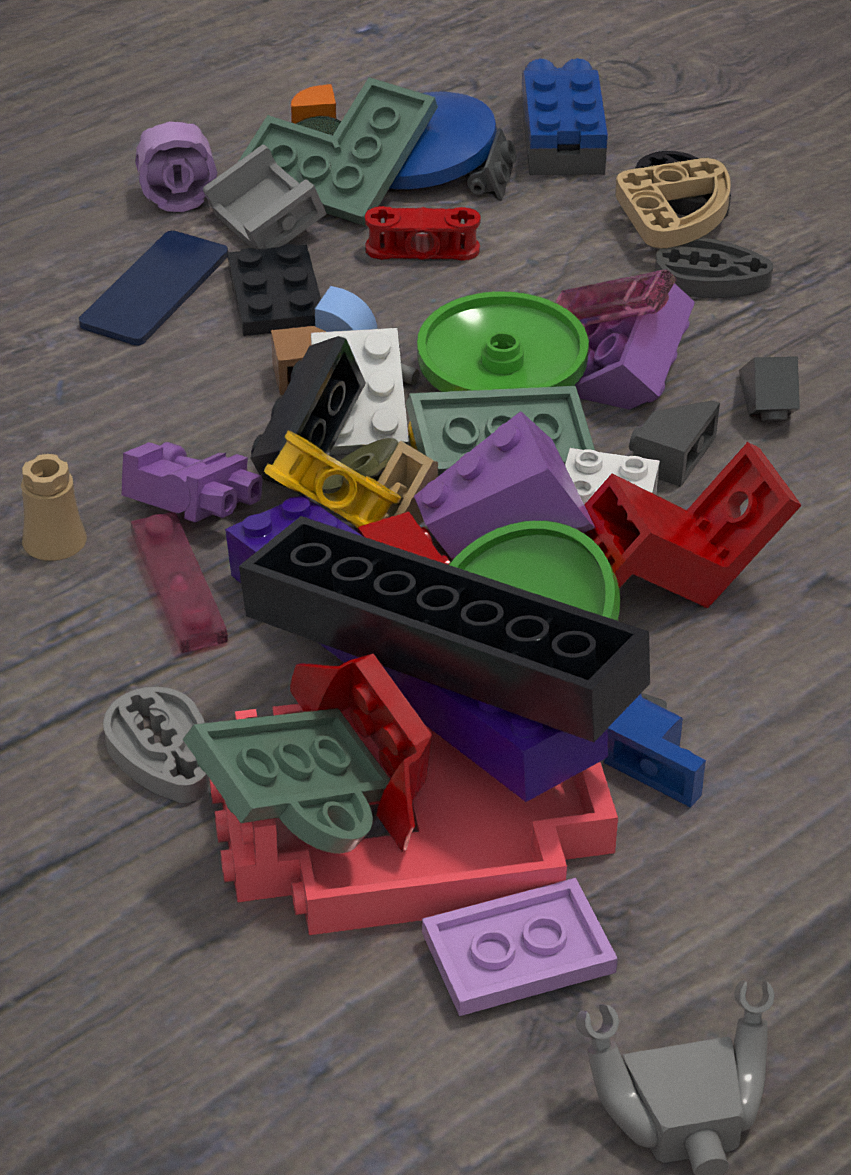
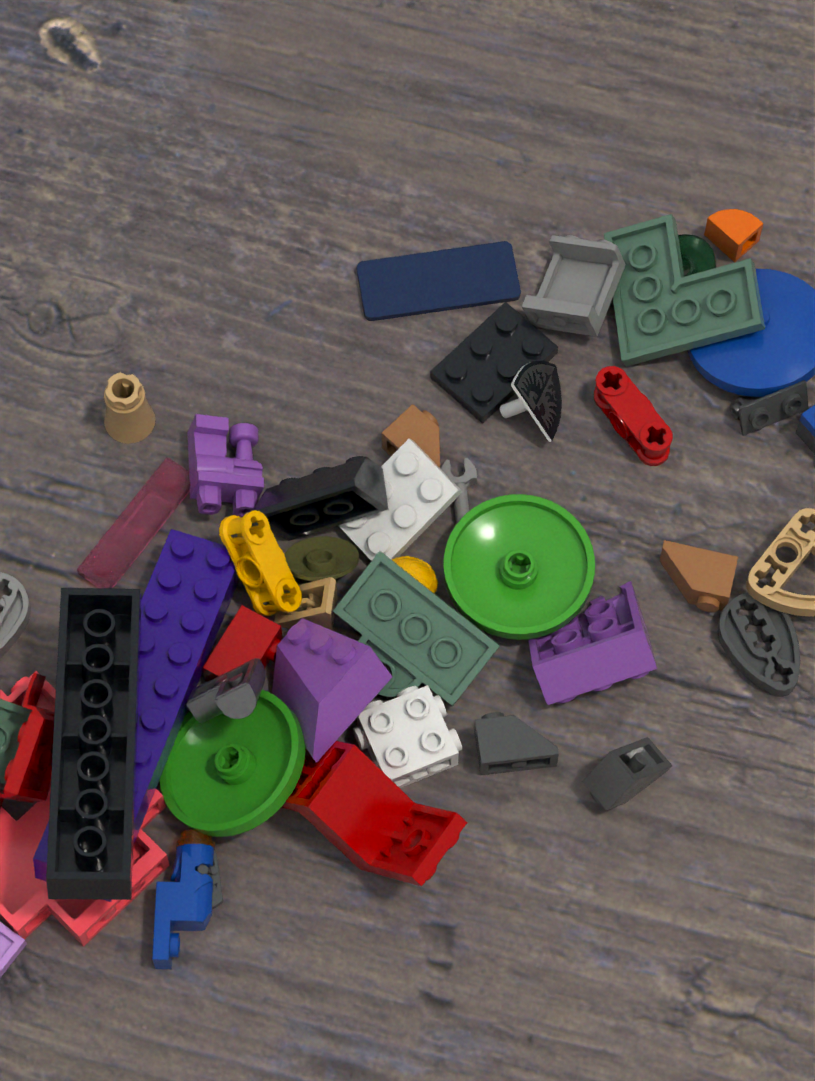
camera: 55 degrees right, 25 degrees up
(174, 165) = (566, 196): lavender brick -> none
(343, 312) = (483, 436): light blue brick -> none
(347, 268) = (539, 394): none -> shield
(469, 531) = (230, 693): none -> flat silver brick
(612, 258) = (700, 574): none -> medium nougat slope
(619, 297) = (606, 610): clear pink plate -> none

